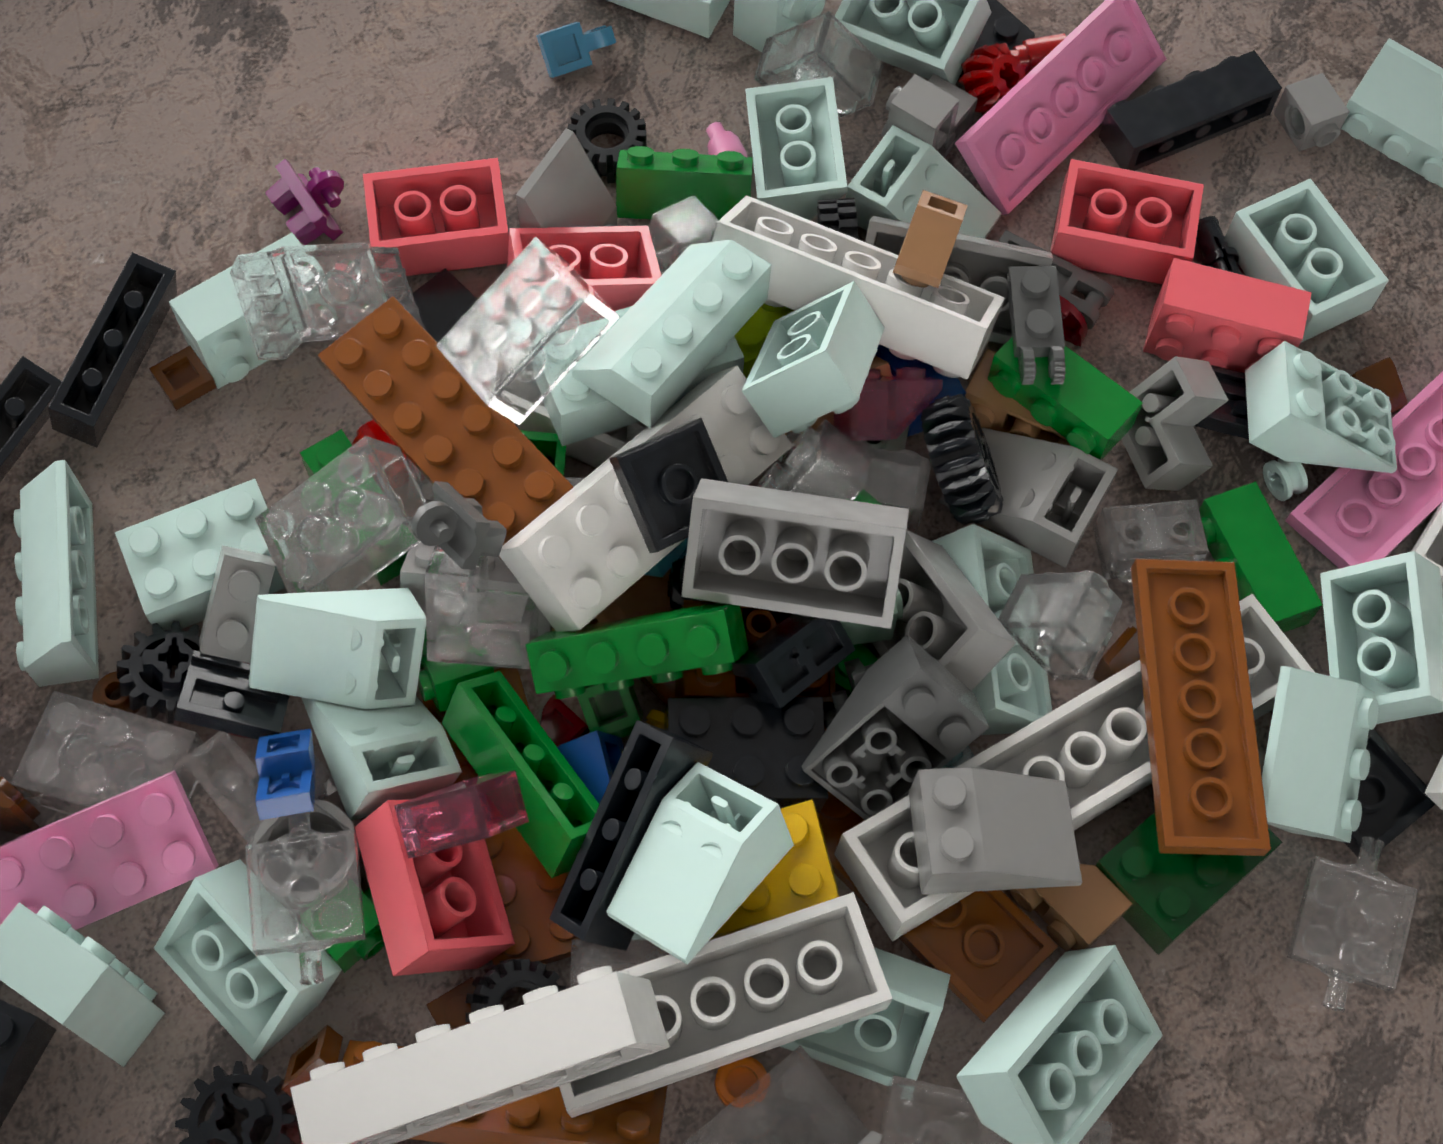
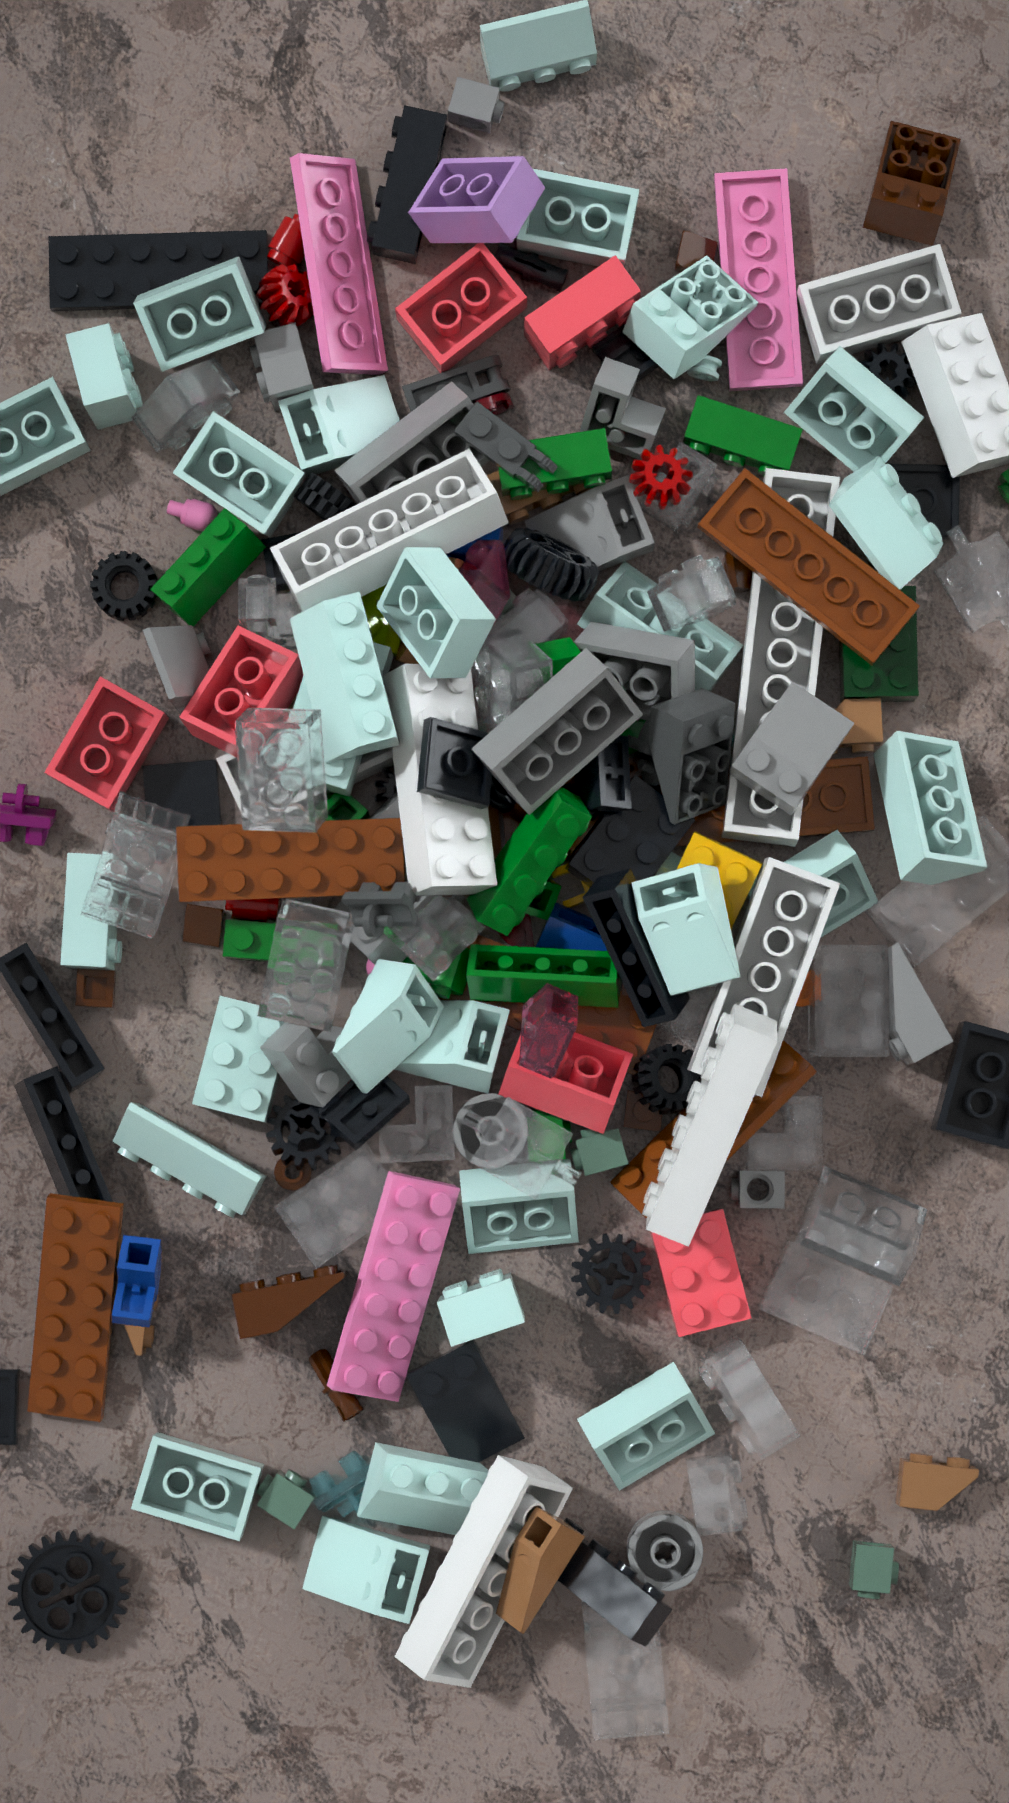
camera: 45 degrees left, 20 degrees up
(285, 774) = (443, 1110): blue slope -> none
(317, 1052) = (611, 1210): reddish brown plate -> none
(325, 420) = (203, 925): none -> reddish brown slope
(376, 998) = (598, 1151): none -> sand green brick
(569, 48) = (28, 552): dark azure plate -> none
(929, 240) = (405, 470): medium nougat slope -> none
(1146, 494) = (672, 485): none -> red gear
(1237, 151) = (477, 200): none -> lavender brick

